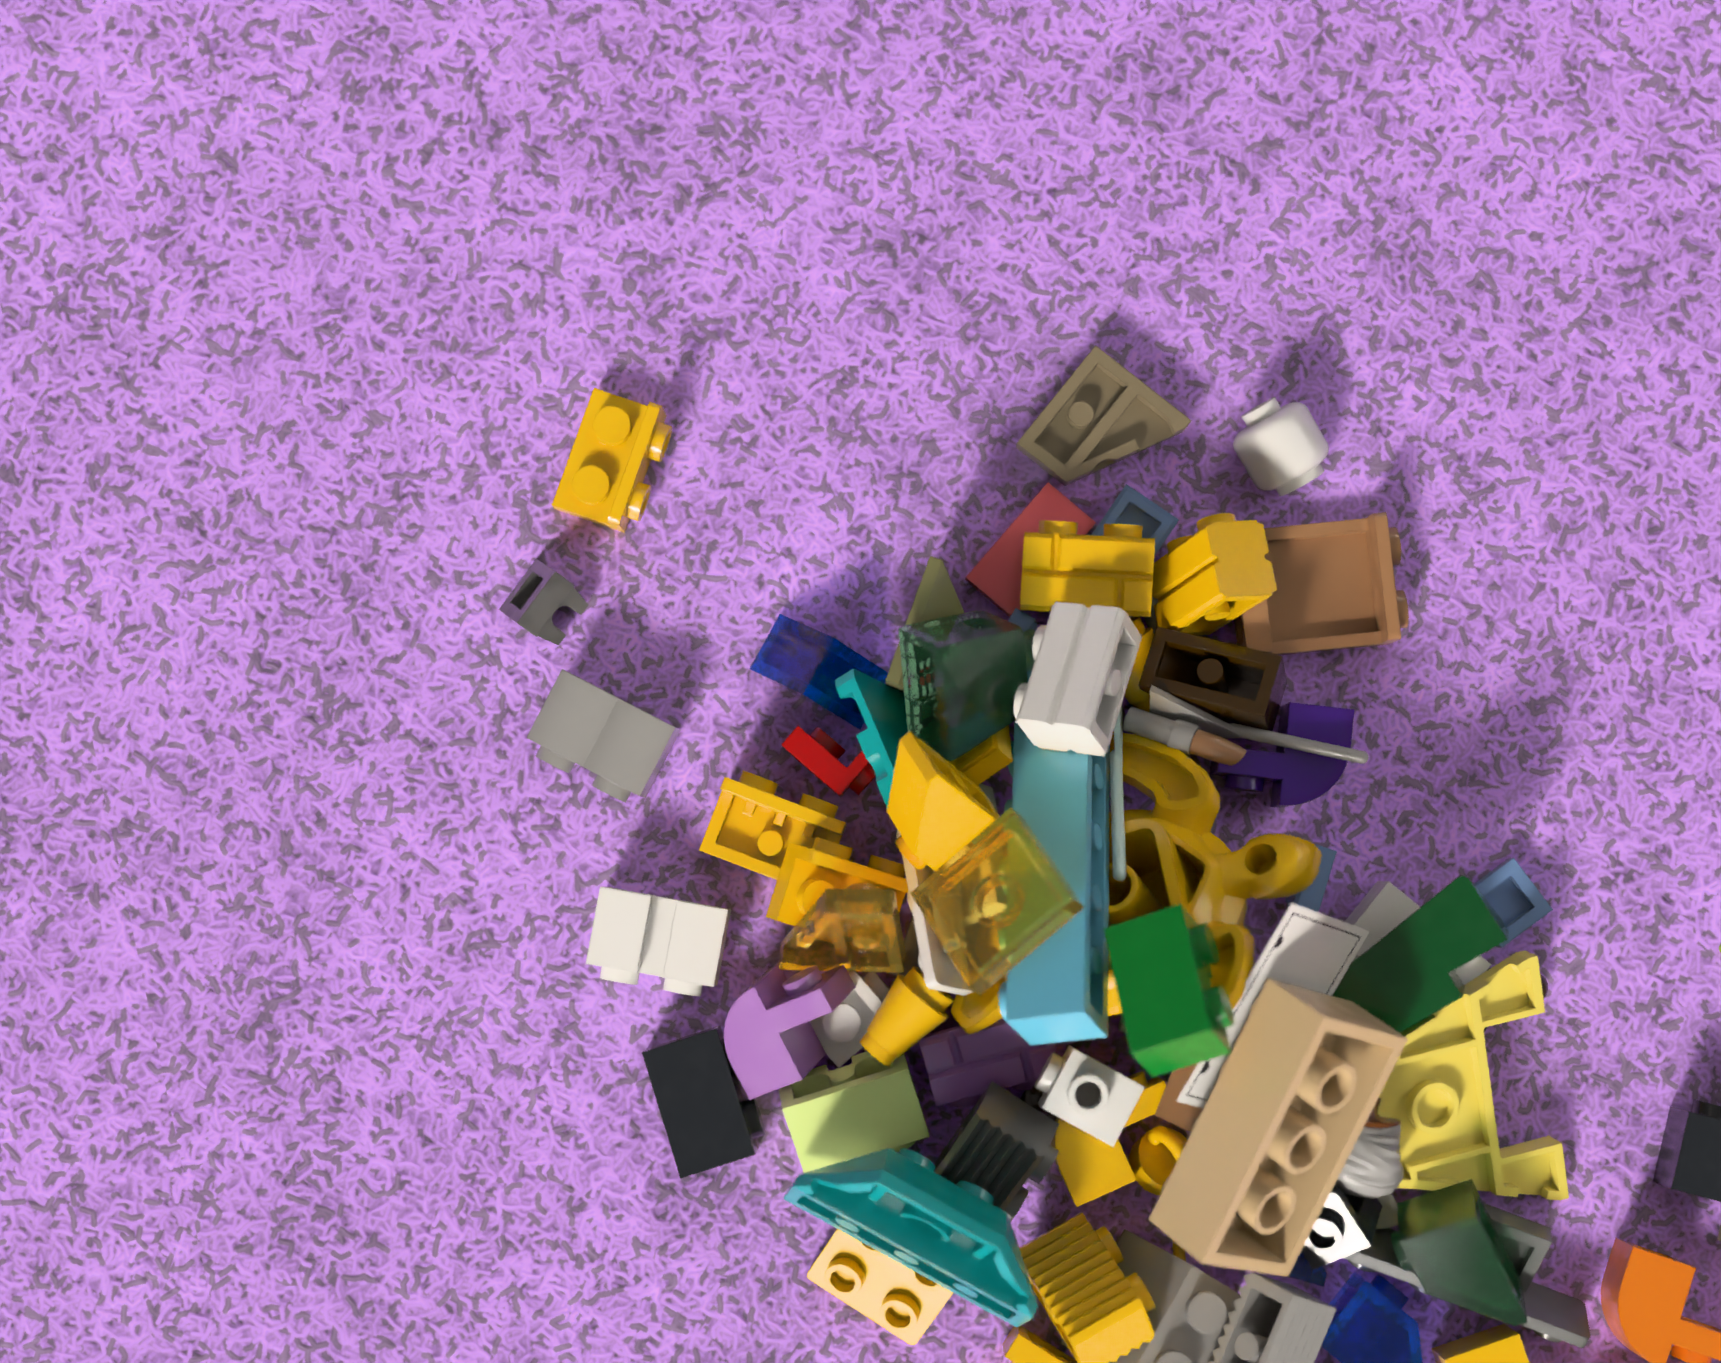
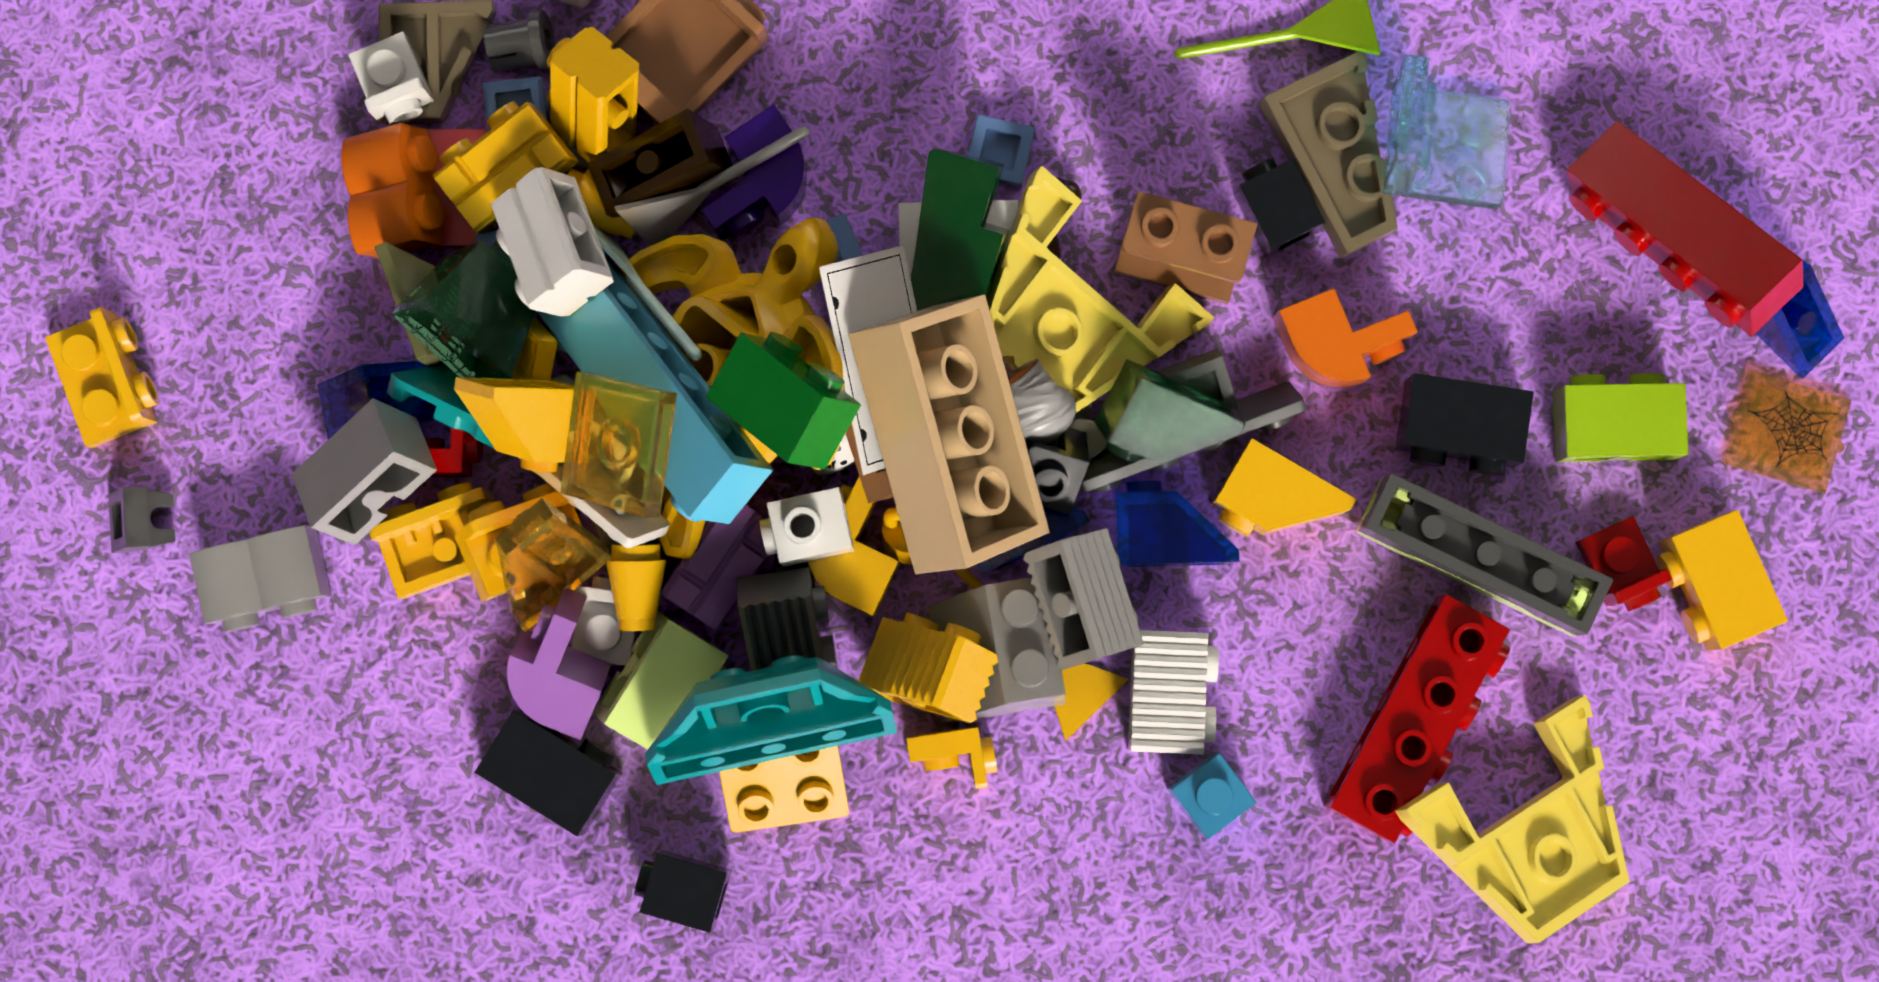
camera: 40 degrees left, 0 degrees up
(657, 938) = (422, 684): white brick -> none
(728, 1296) = (682, 890): none -> black brick
(762, 728) = (360, 469): none -> light grey brick
(977, 510) = (392, 189): none -> orange brick
(1055, 419) = (391, 80): none -> white bracket
(1182, 736) = (668, 224): light grey piece -> none
(1184, 476) = (520, 43): none -> dark grey bush
(1600, 1127) = (1185, 246): none -> medium nougat panel

